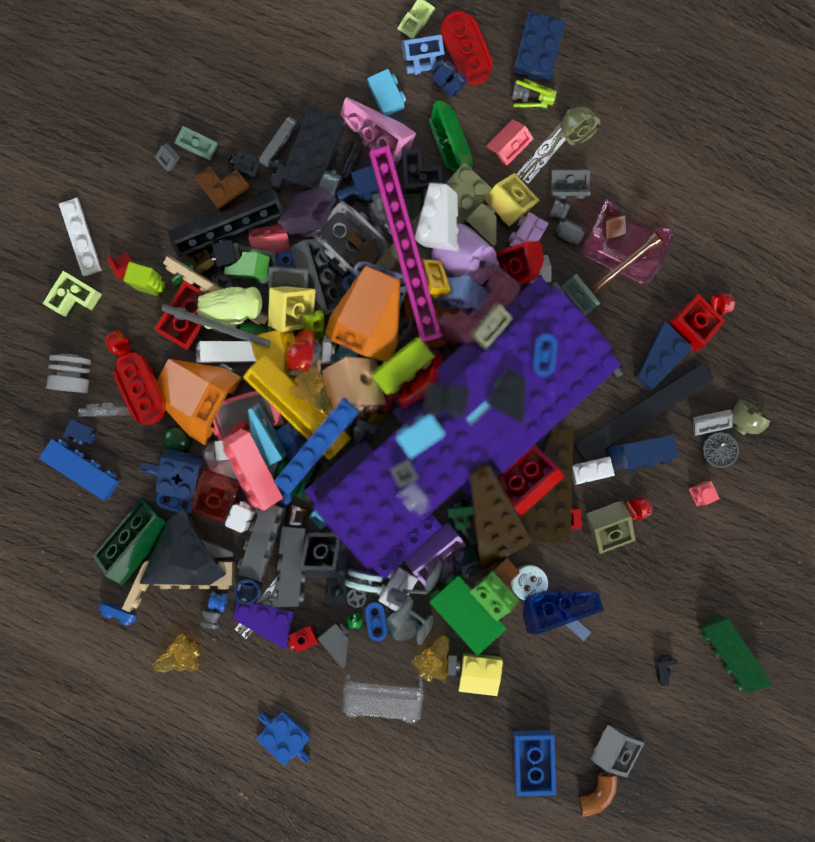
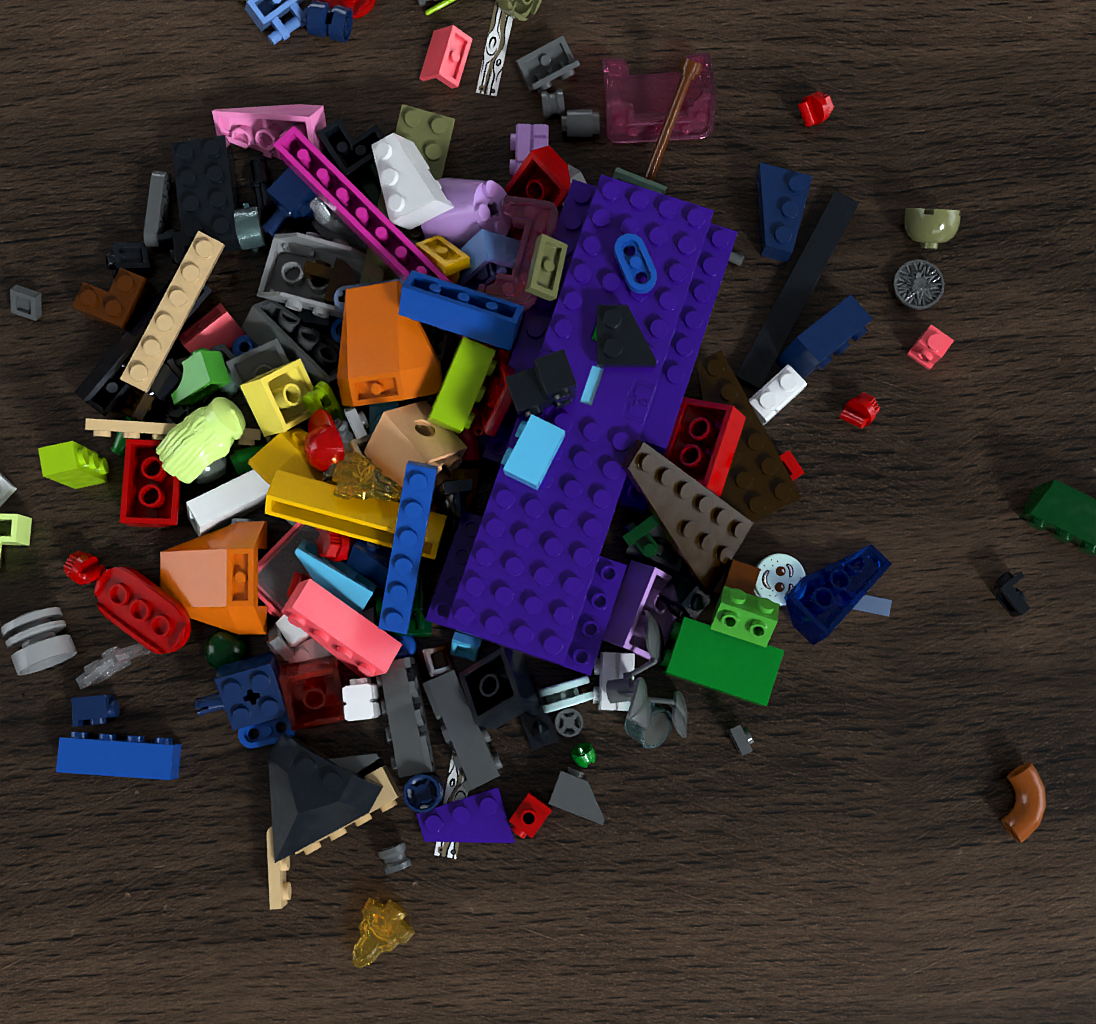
camera: 25 degrees left, 5 degrees down
(110, 610) = (278, 918): blue plate -> none
(120, 265) = (33, 470): red panel -> none
(130, 542) = (236, 816): dark green slope -> none
(181, 313) = (145, 480): dark grey bar -> none
(196, 143) = (54, 266): sand green plate -> none
(218, 601) = (392, 829): blue wheel -> none
(253, 217) = (172, 312): none -> tan plate
(274, 418) = (334, 545): none -> red piece
(283, 737) = (576, 961): blue plate -> none
(307, 212) = (240, 270): clear purple brick -> none
(377, 620) = (611, 739): blue plate -> none
(382, 701) = (678, 836): clear windscreen -> none
(386, 93) = (260, 79): medium azure brick -> none
(404, 474) = (540, 512): dark grey plate -> none
(415, 499) = (572, 536): clear brick -> none
(425, 322) = (460, 310): none -> blue brick
(433, 661) = (714, 750): clear yellow rock -> none
(449, 137) = (366, 89): green brick -> none
(480, 674) = (783, 732): light yellow slope -> none
(483, 223) = (466, 161): olive slope -> none
(511, 199) = (485, 123): light yellow slope -> none
(534, 763) = (919, 808): blue brick -> none
(611, 526) = (840, 452): olive slope -> none
(615, 226) = (632, 84): reddish brown slope -> none
(616, 751) = (1013, 733): dark grey slope -> none
(697, 322) = (799, 144): red slope -> none
(712, 422) = (889, 255): light grey plate -> none

